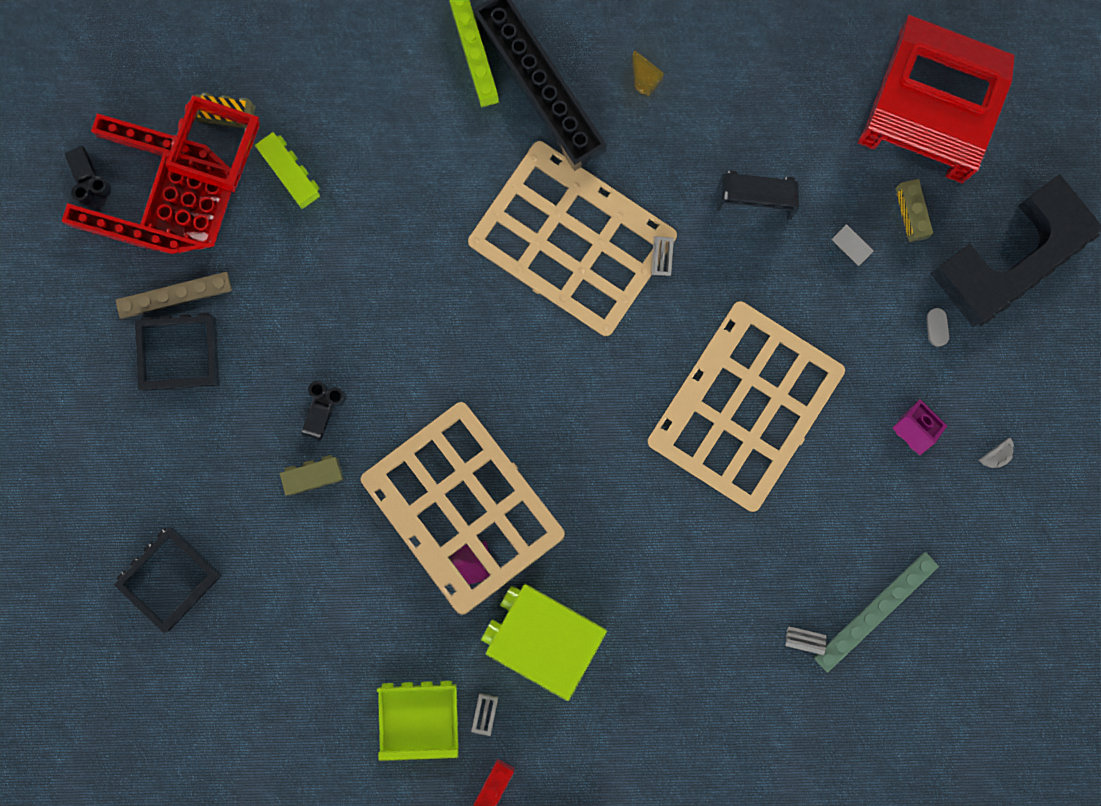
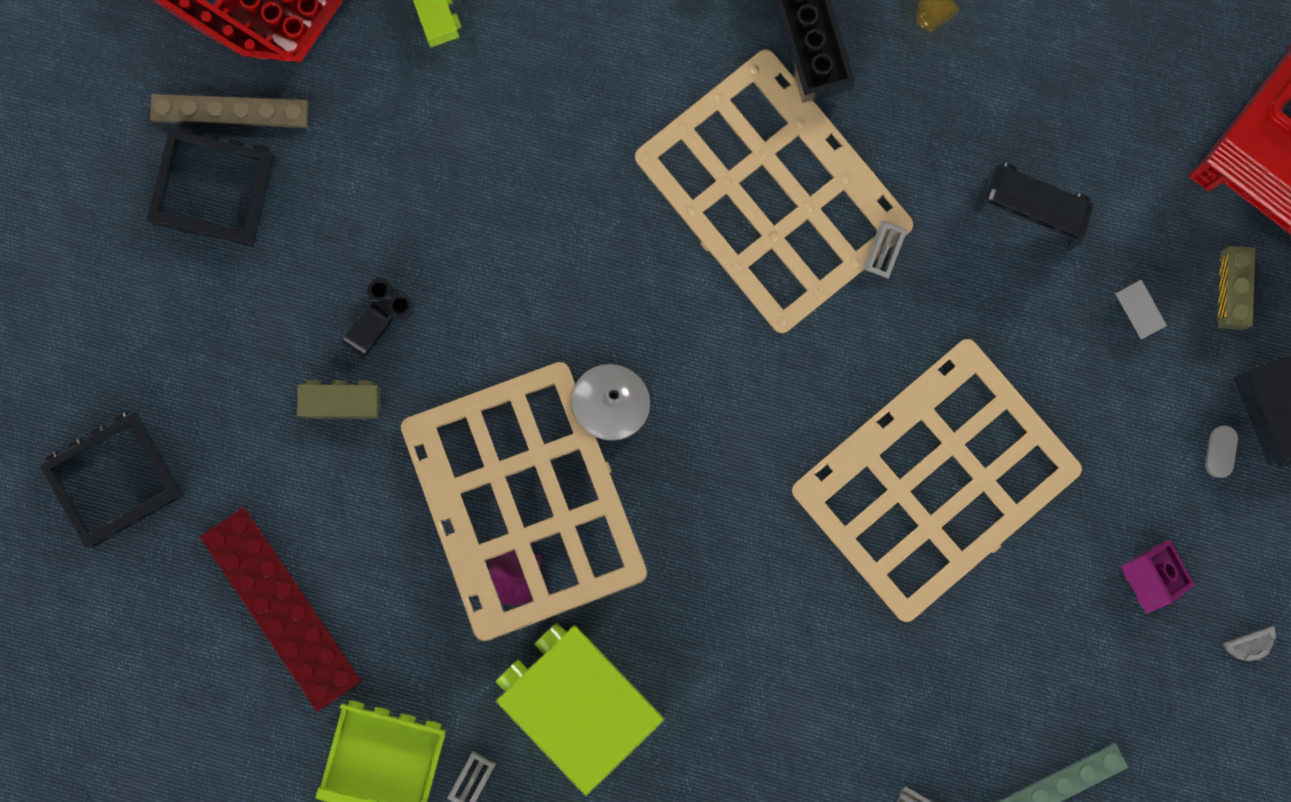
camera: 15 degrees right, 0 degrees up
(314, 634) = (281, 609): none -> dark red plate
(500, 430) = (606, 416): none -> light grey dish

